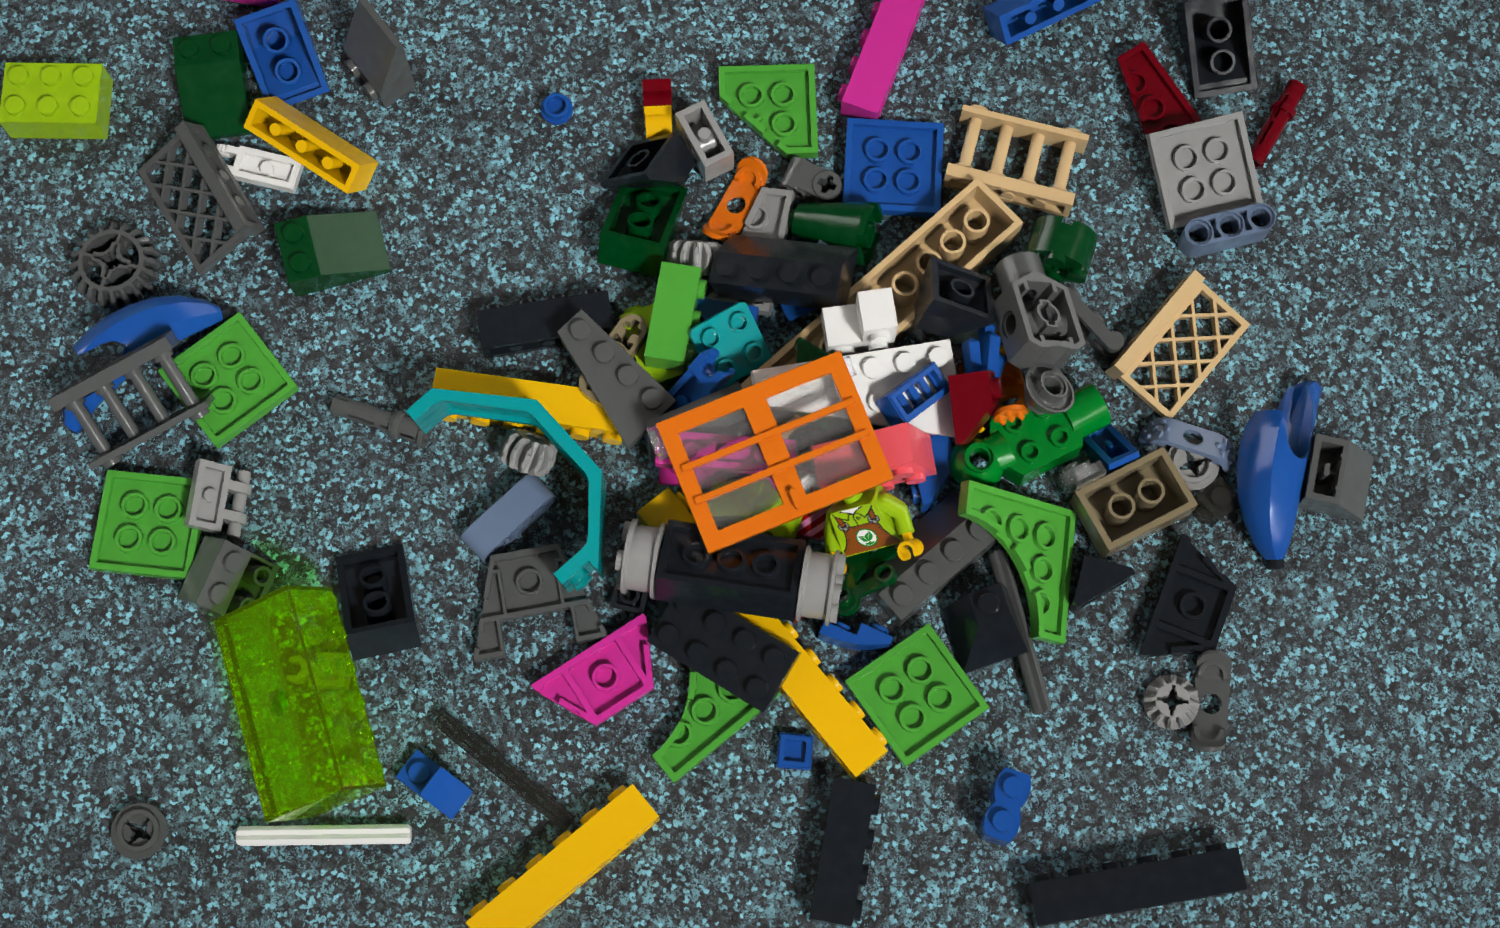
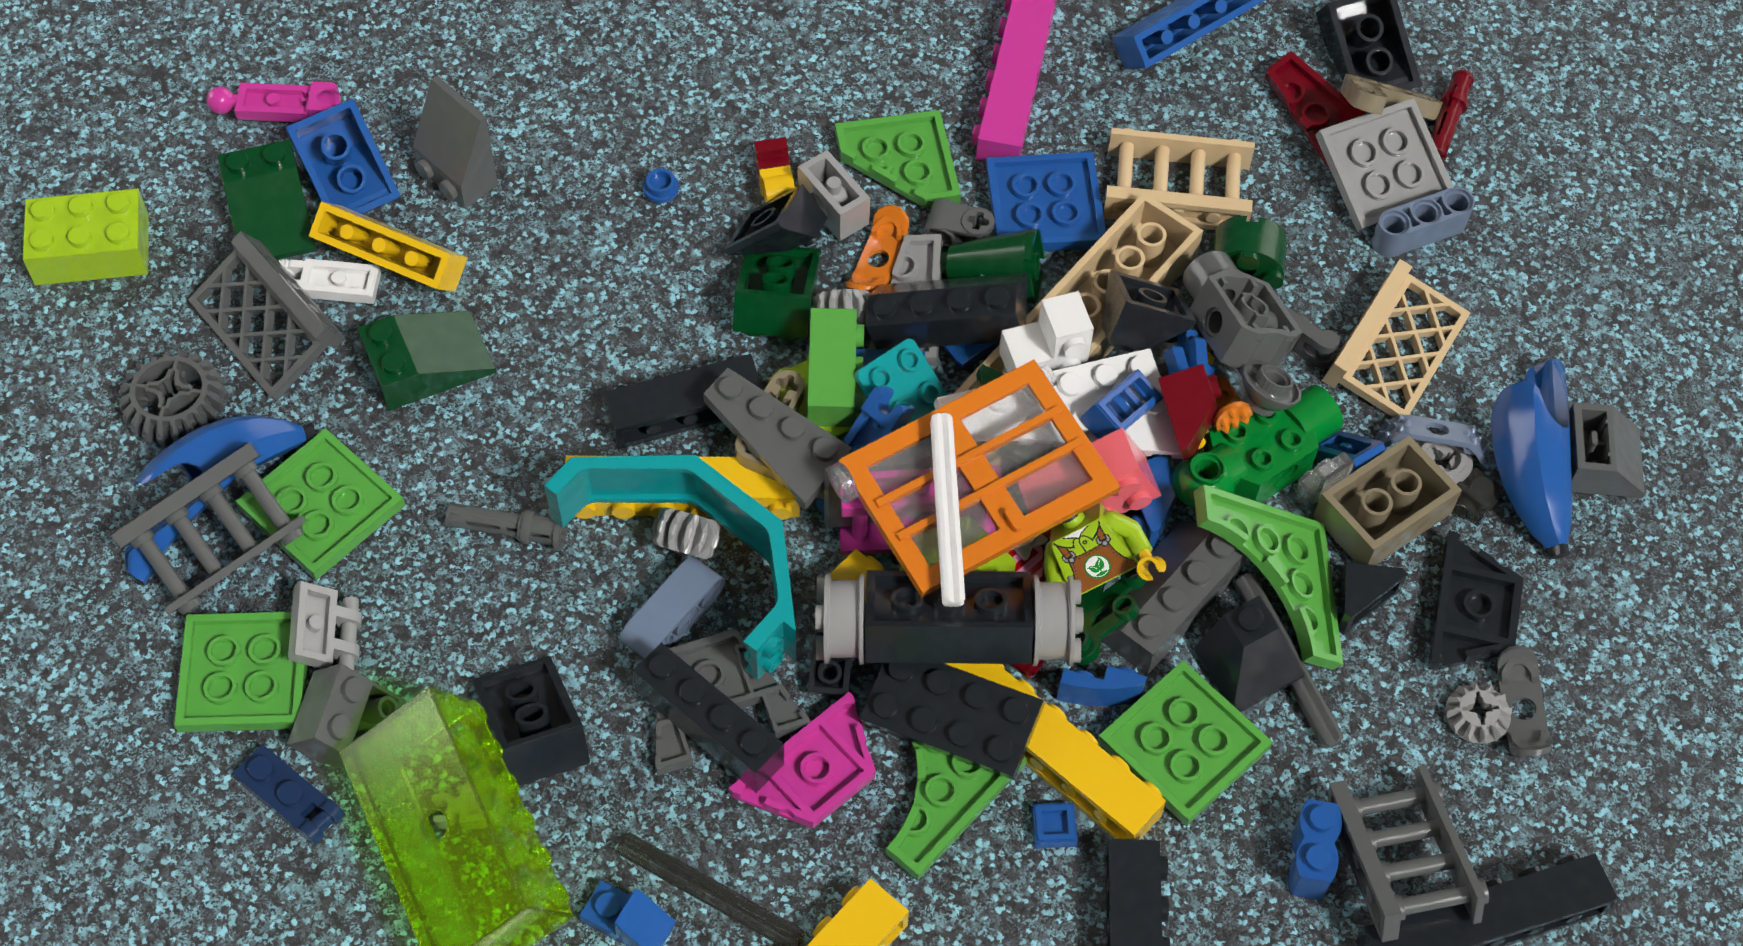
camera: 10 degrees left, 15 degrees down
(174, 637) = (287, 794): none -> dark blue plate
(520, 625) = (709, 717): none -> black brick
(739, 484) = (947, 510): none -> white axle
(1049, 842) = (1376, 876): none -> dark grey fence
(1203, 96) = (1374, 95): none -> dark tan beam

